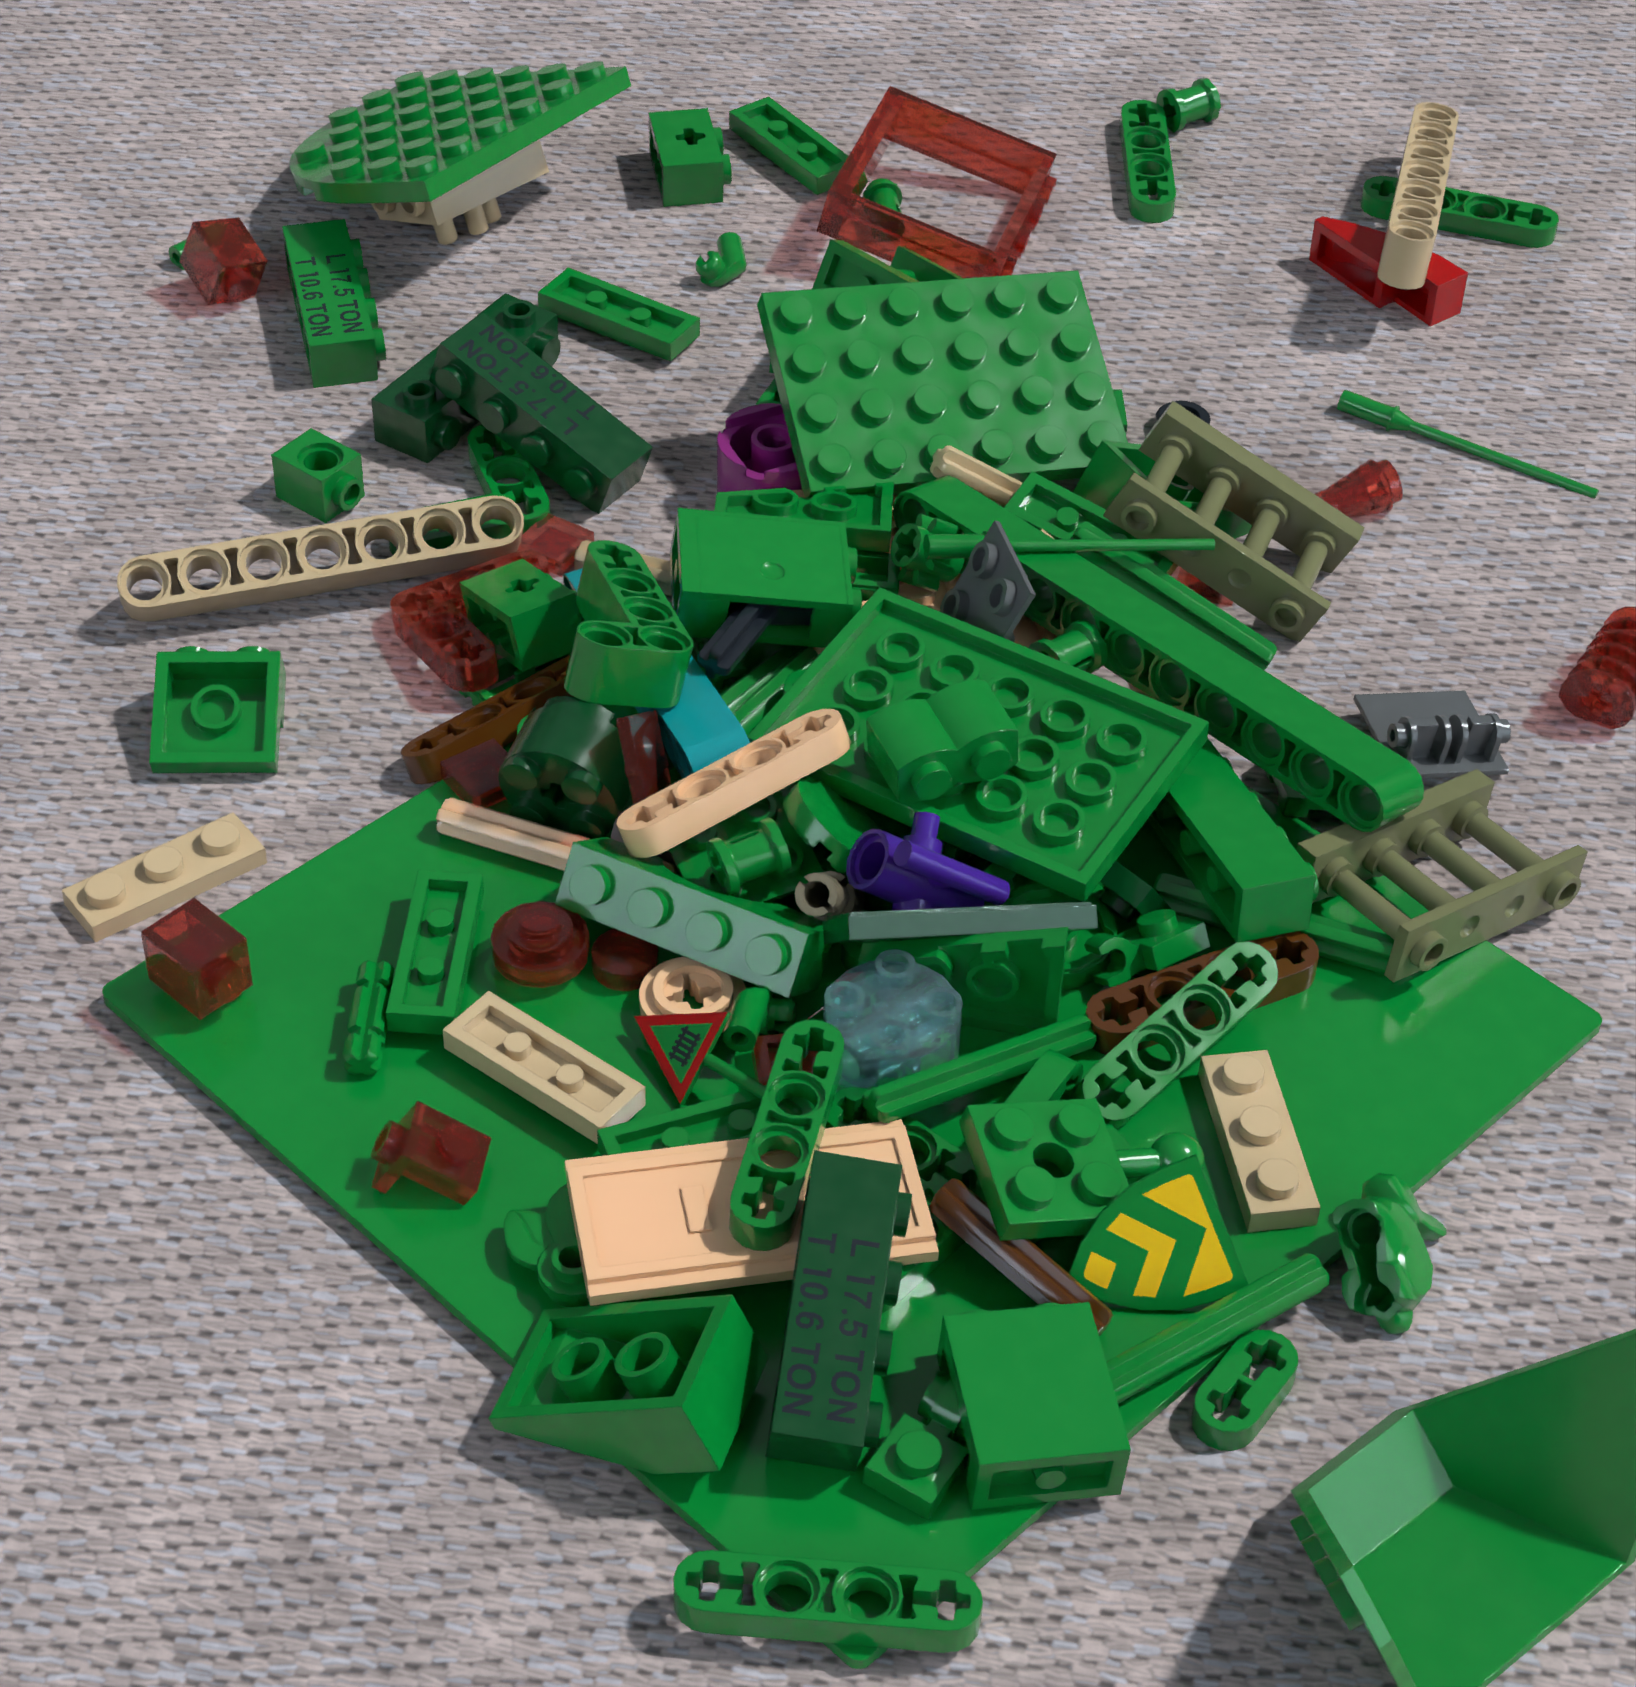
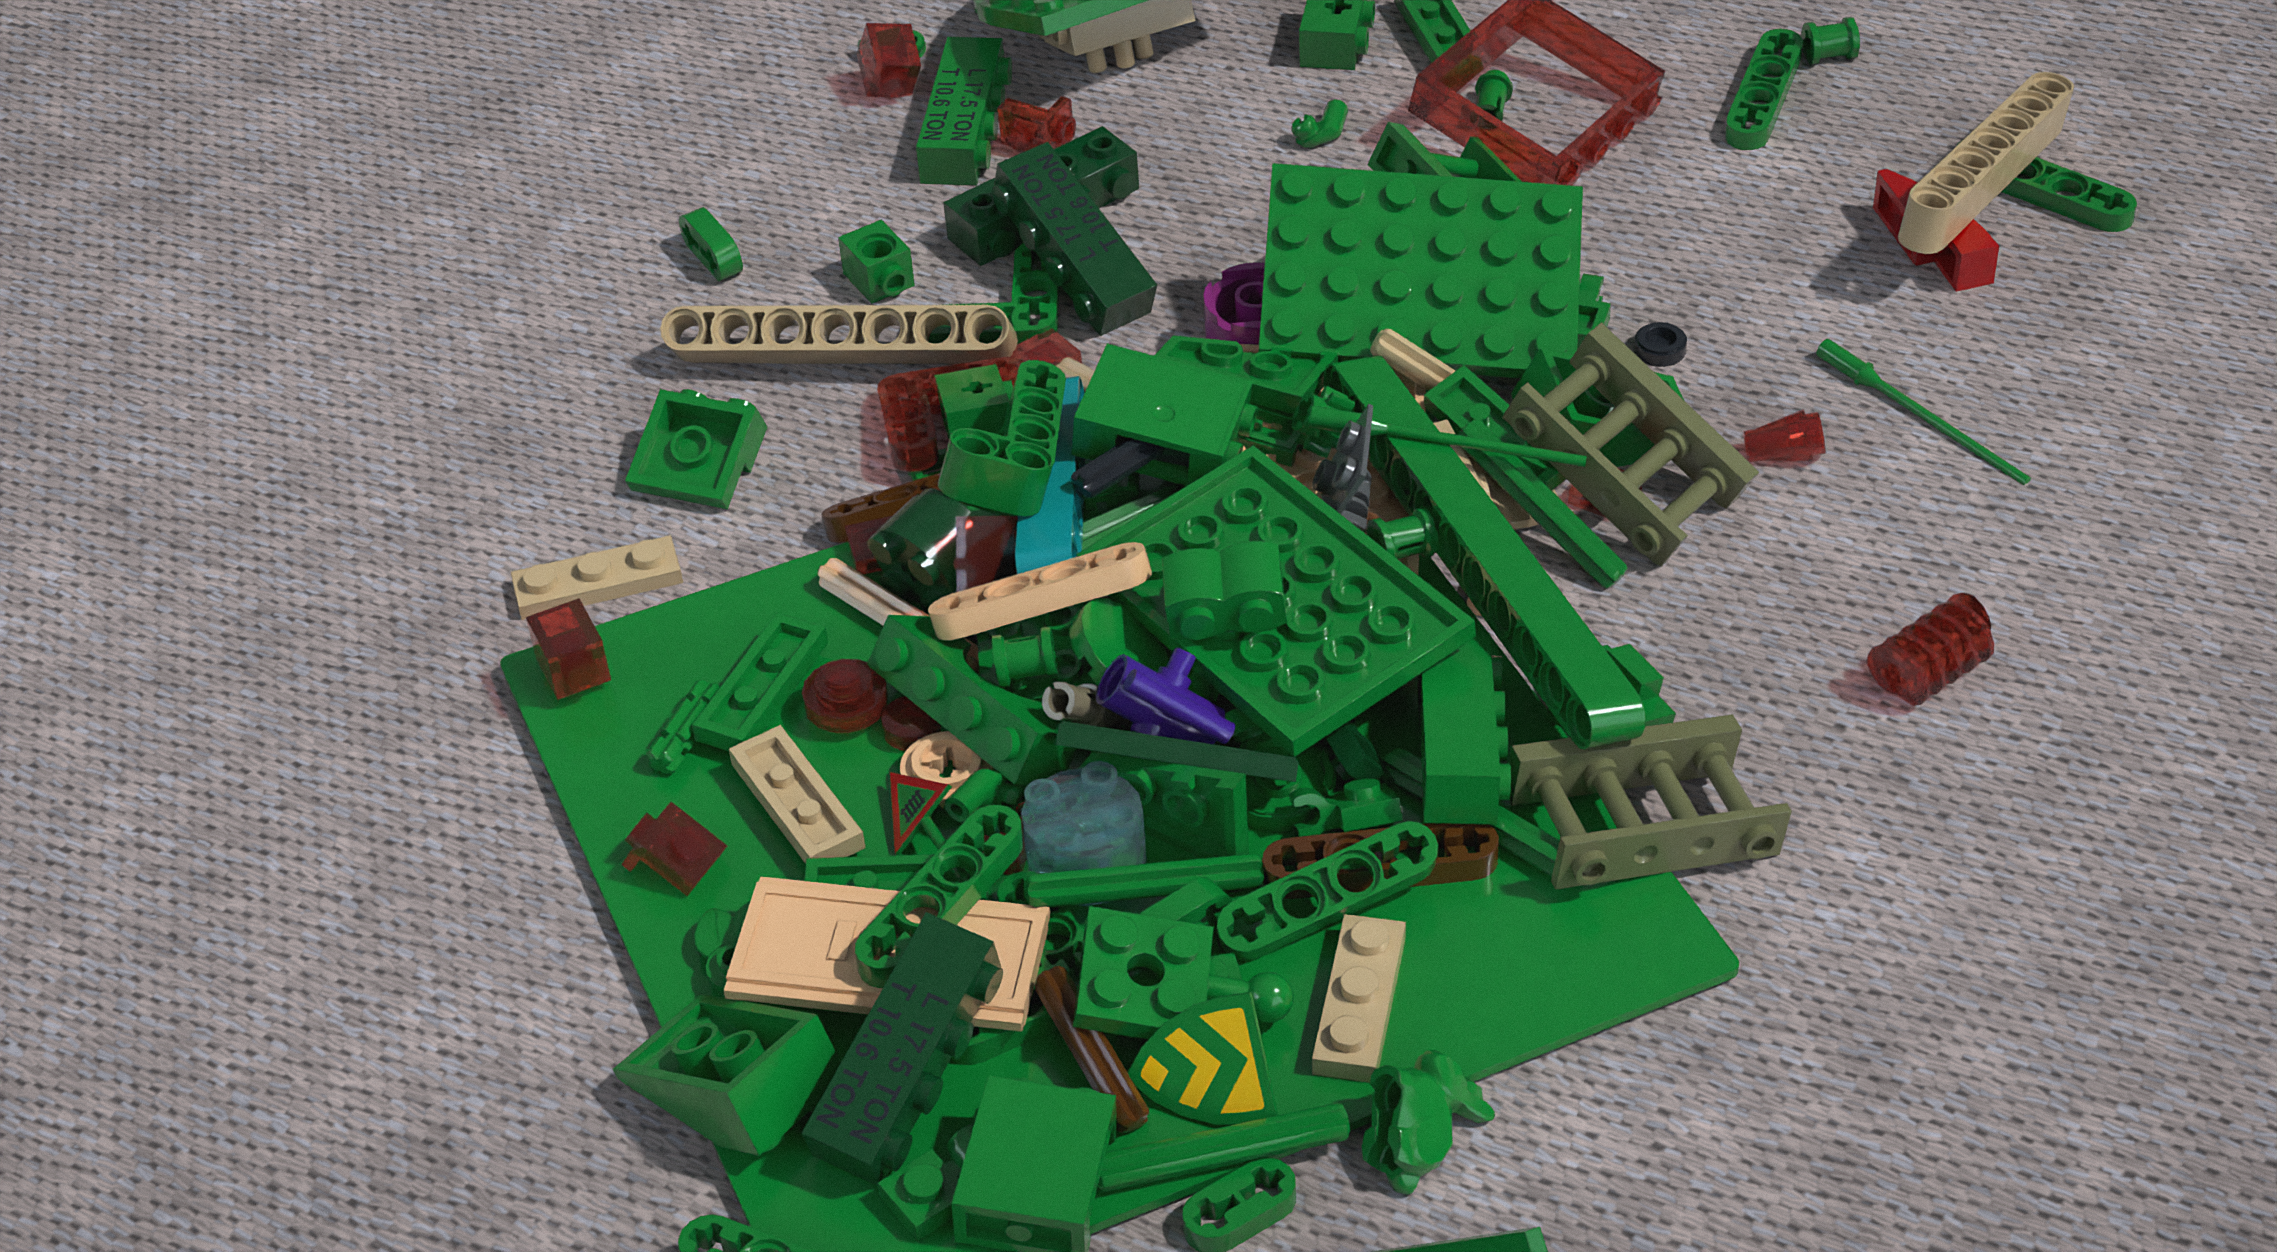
camera: 25 degrees right, 0 degrees up
(114, 487) = (711, 243): none -> green beam
(421, 308) = (1029, 126): none -> clear red bracket
(619, 314) = (1203, 160): green plate -> none
(1437, 731) = (1729, 675): dark grey hinge -> none

